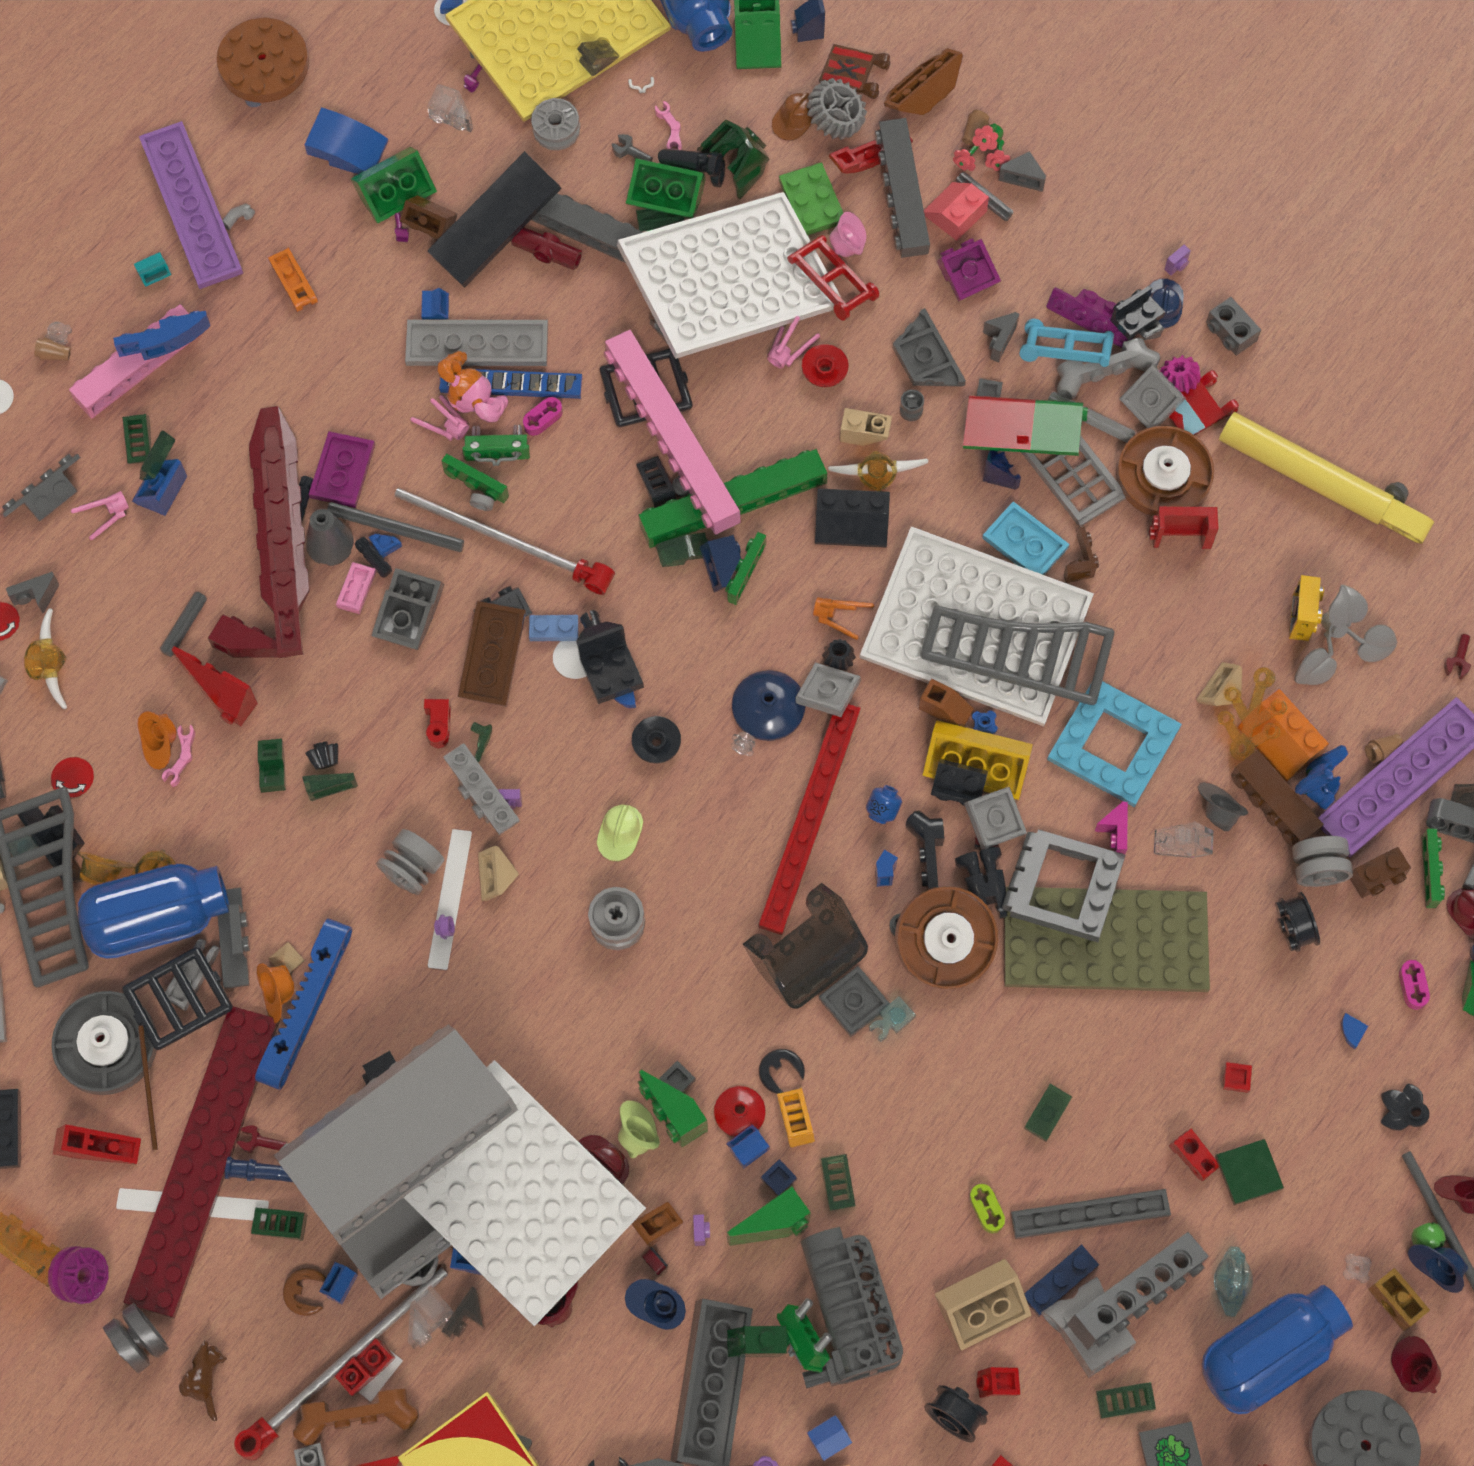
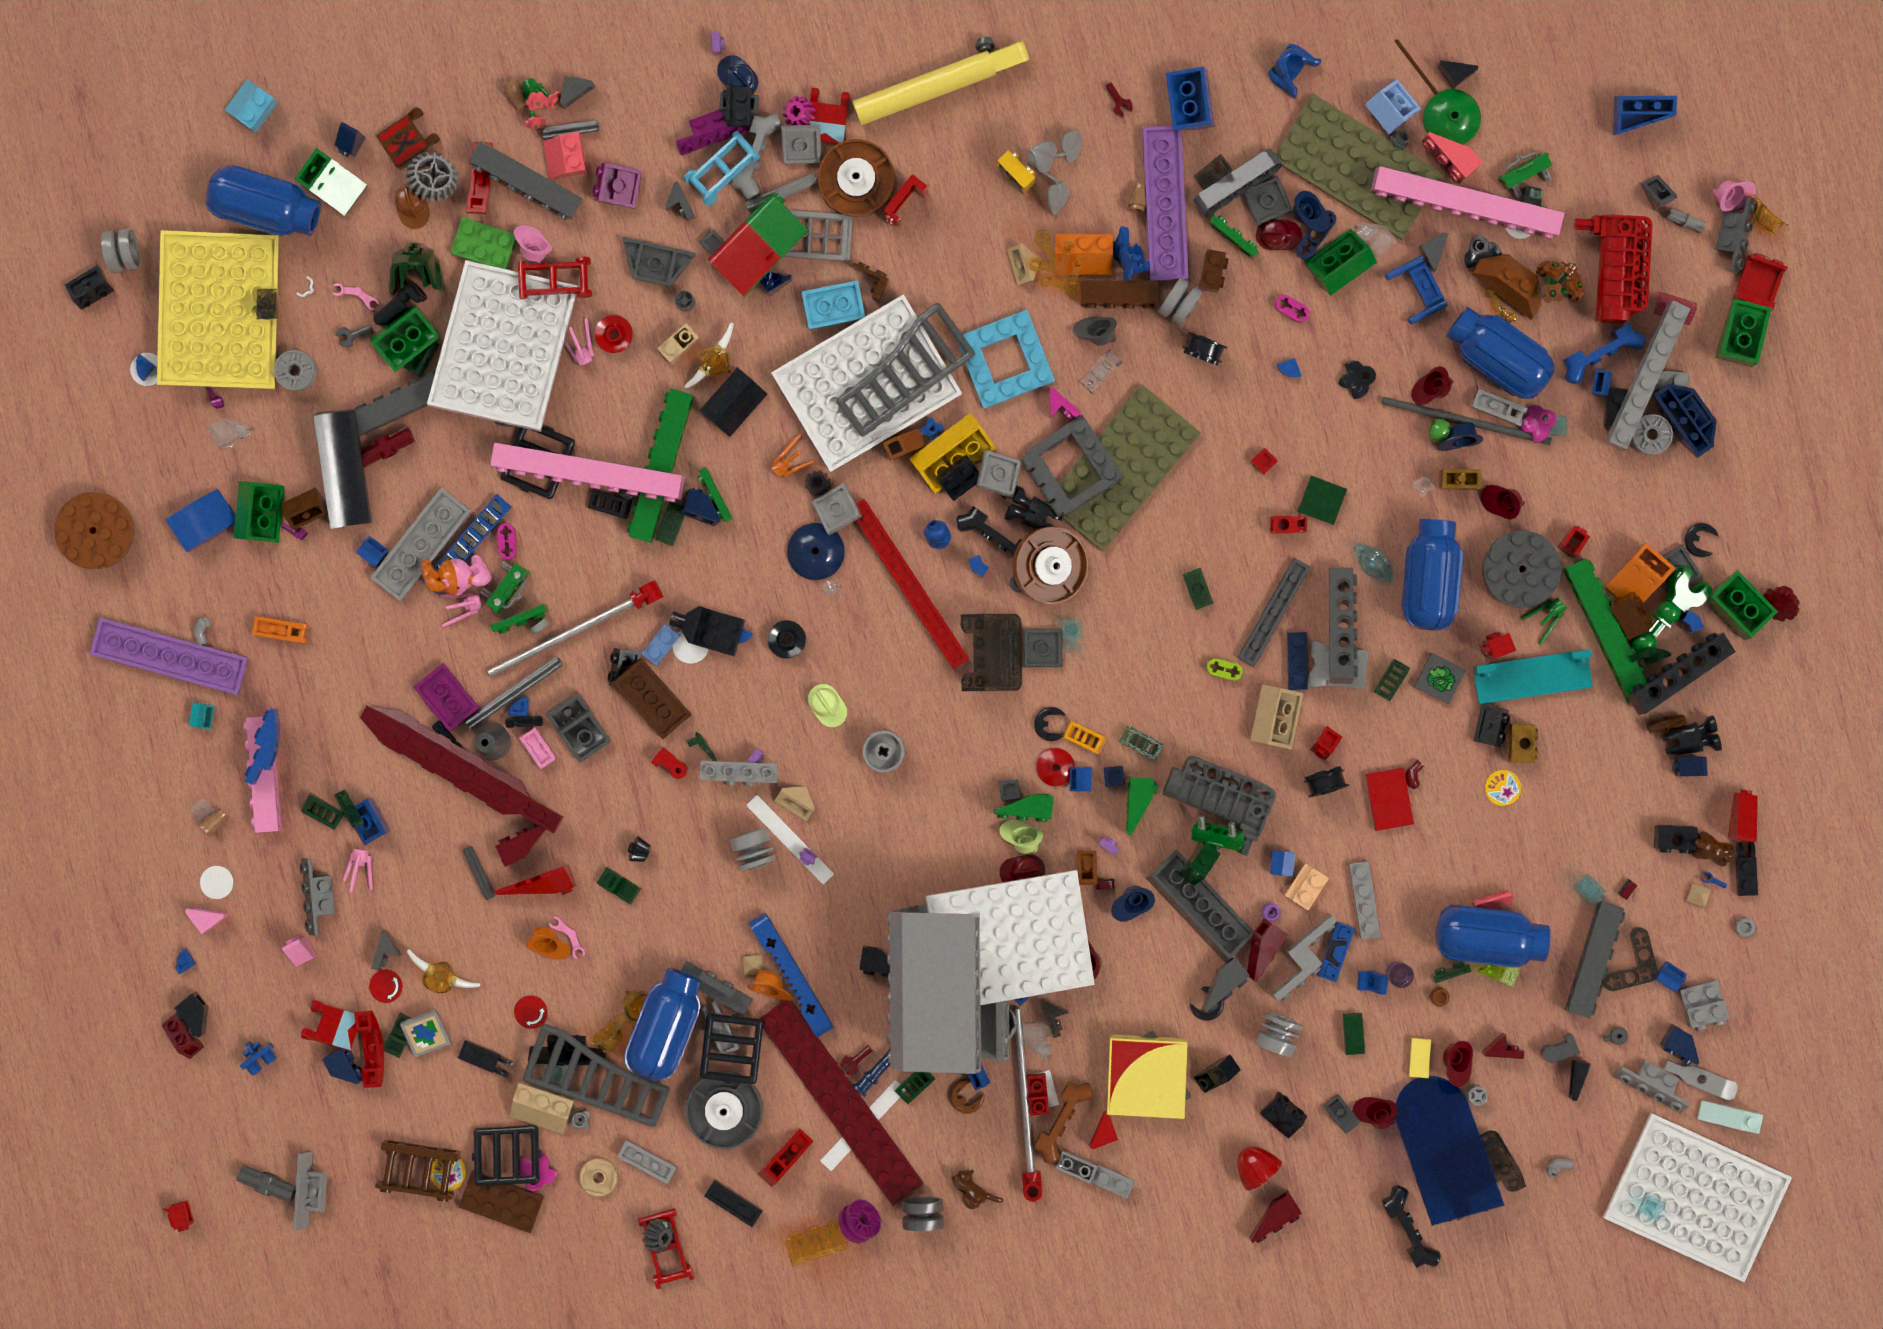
camera: 55 degrees left, 20 degrees up
(147, 1088) = (773, 1103): reddish brown piece -> none
(325, 785) = (658, 864): clear green slope -> none
(926, 84) = (458, 103): dark orange wedge -> none
(1237, 323) = (791, 42): dark grey brick -> none

